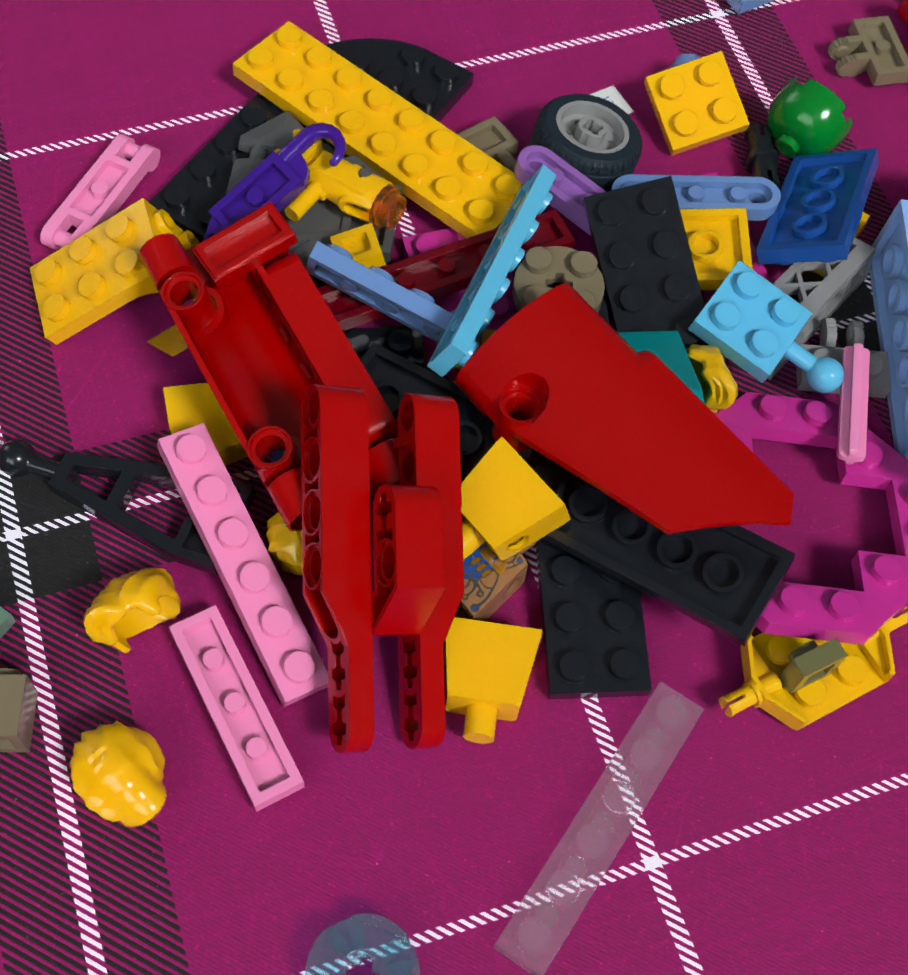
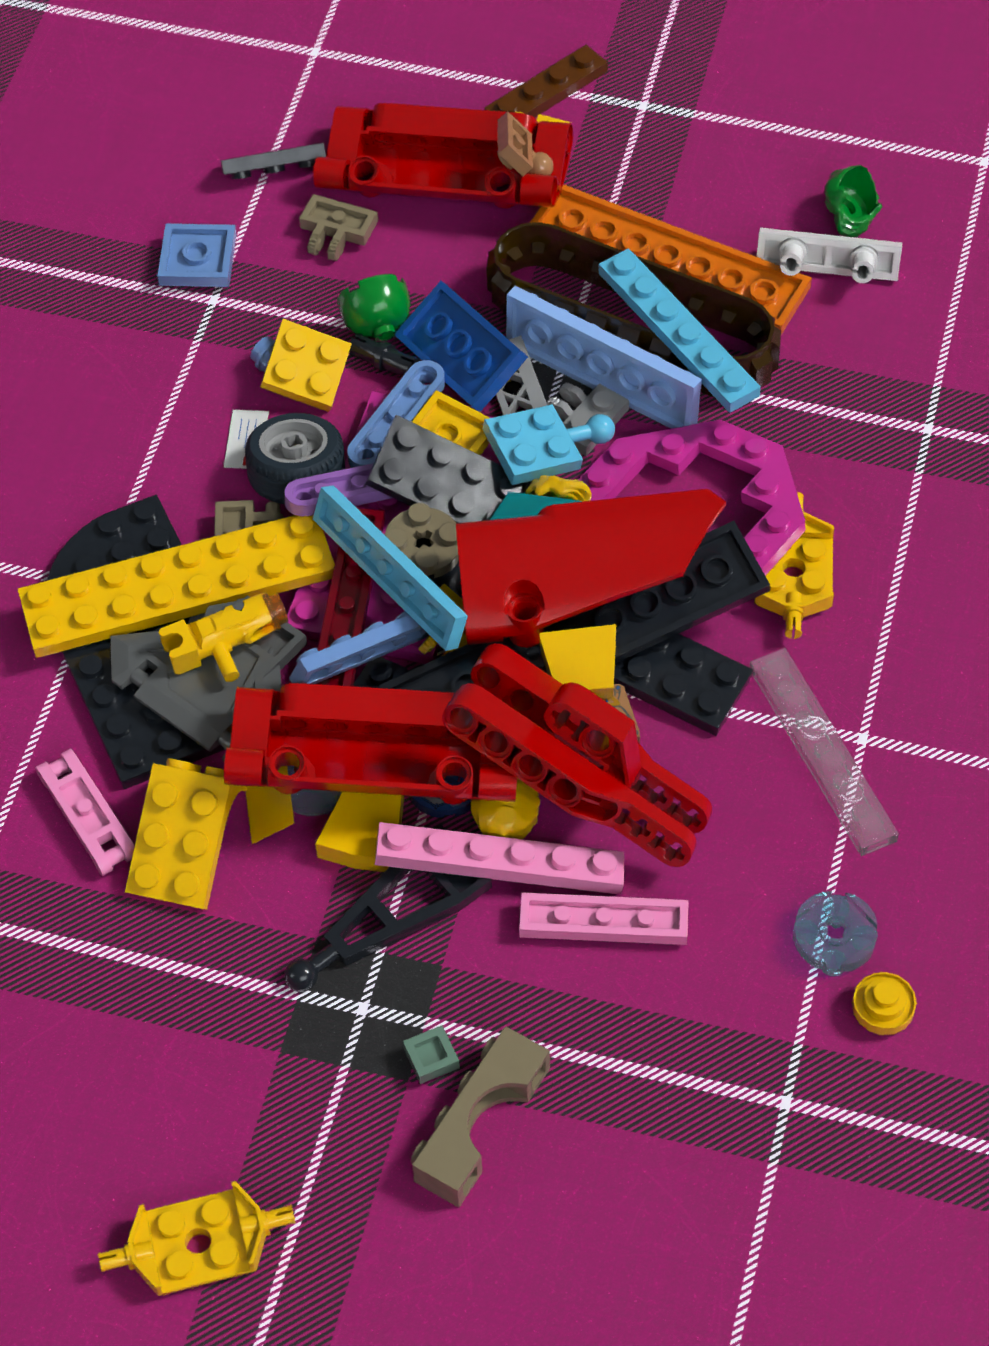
camera: 50 degrees left, 5 degrees down
(119, 773) = (612, 1008): yellow hair -> none
(131, 606) = (487, 941): yellow hair -> none
(244, 245) = (261, 710): red tile -> none
(275, 179) = (204, 675): dark purple plate -> none
(362, 245) = (291, 645): yellow plate -> none
(487, 673) = (686, 750): yellow torso -> none
(811, 664) = (800, 565): olive plate -> none
(853, 404) = (633, 427): bright pink axle -> none

